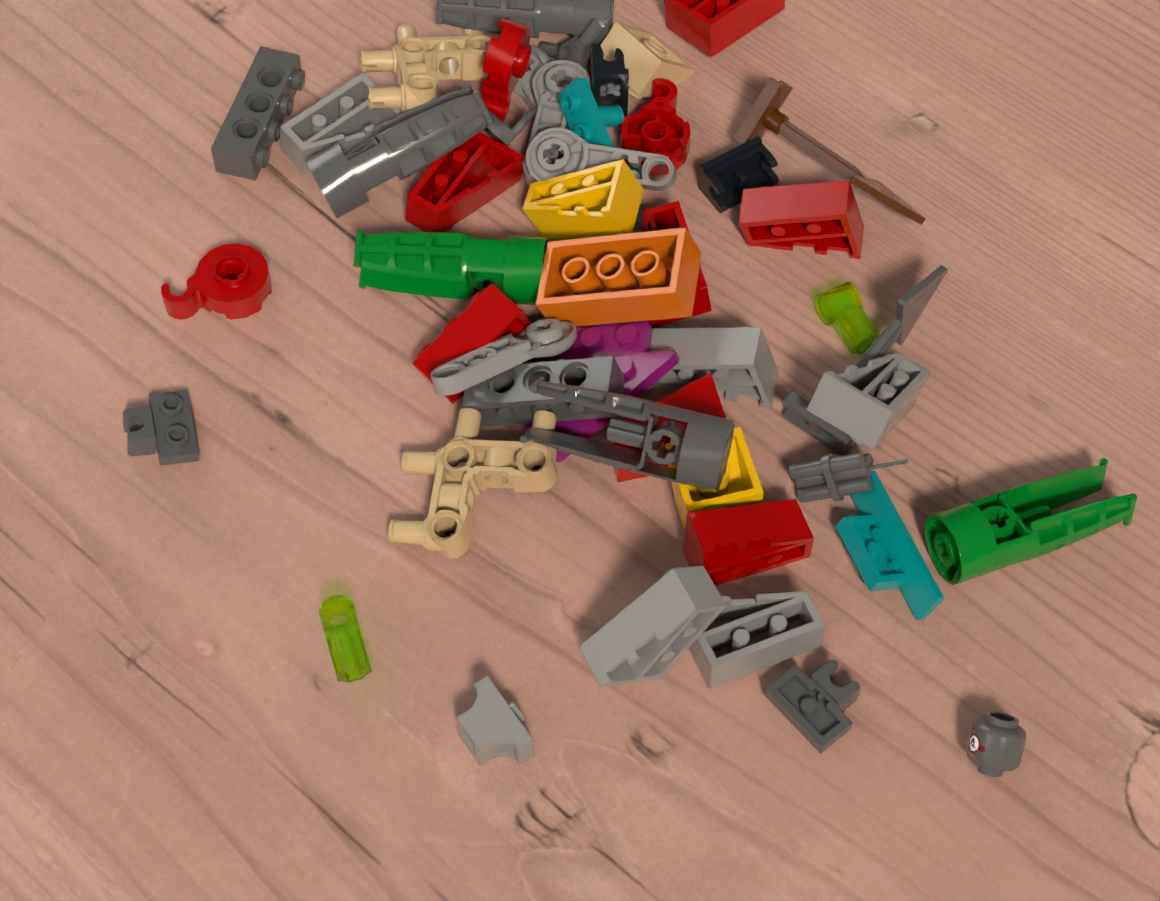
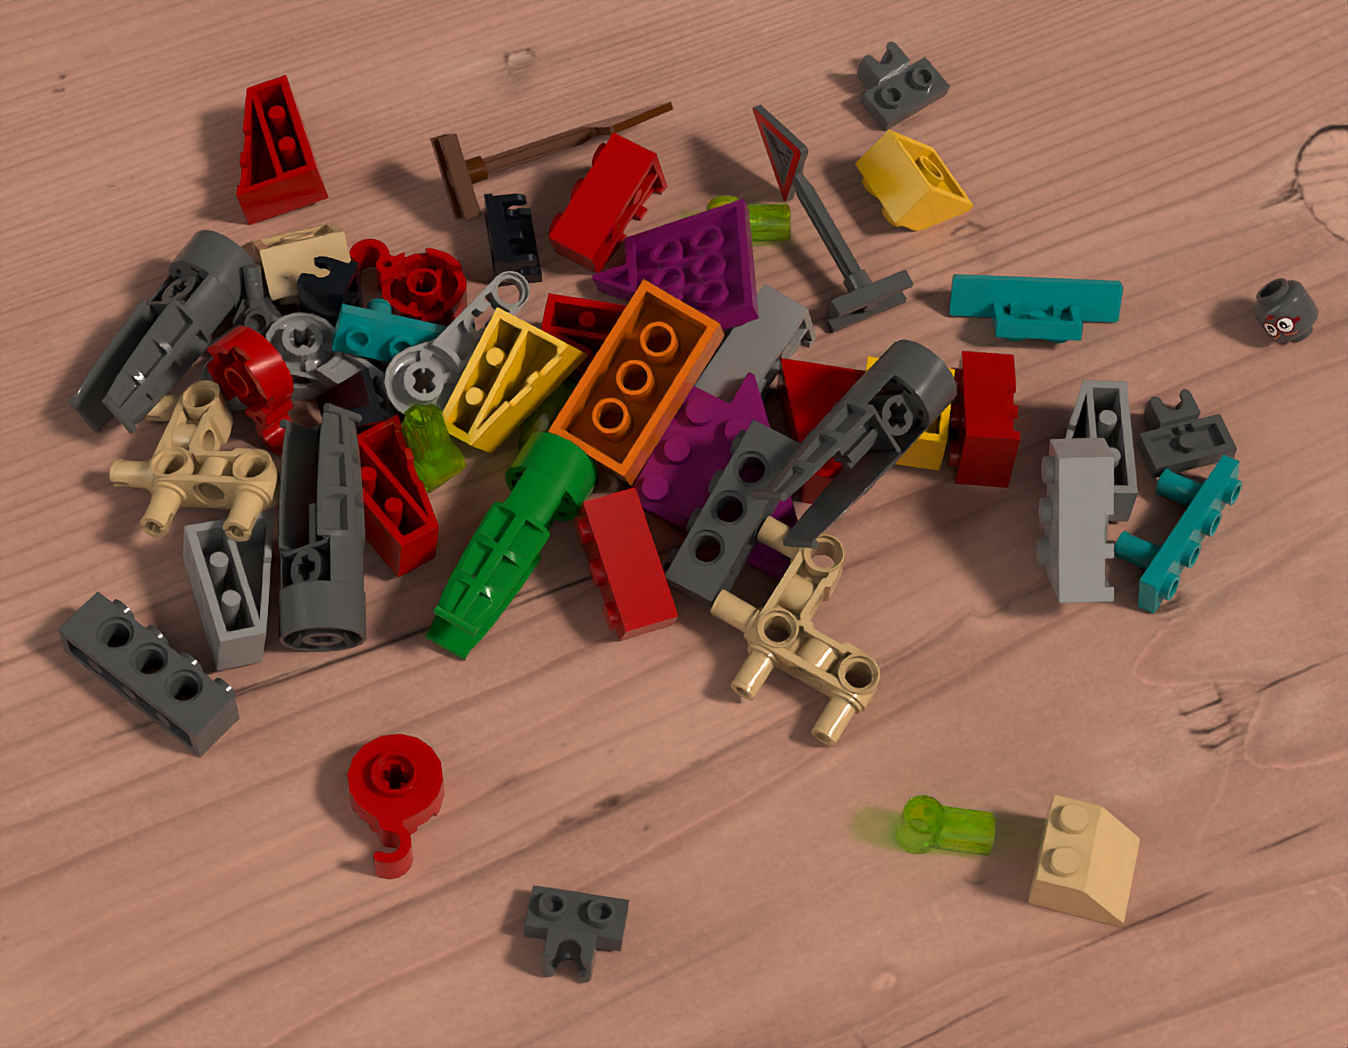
camera: 70 degrees left, 0 degrees up
(354, 749) = (1084, 862): none -> tan slope
(494, 727) = (1104, 722): light grey brick -> none
(511, 188) = (433, 451): none -> clear neon green piece
(540, 339) = (675, 527): light grey beam -> none
(716, 735) = (1182, 547): none -> teal plate
(764, 286) = (697, 260): none -> magenta wing
(835, 476) = (943, 308): dark grey piece -> none
(870, 398) = (887, 231): light grey wedge -> none
(962, 416) = (911, 182): none -> yellow slope
(1018, 524) = (1068, 228): green piece -> none
(1060, 377) = (897, 88): none -> dark grey plate

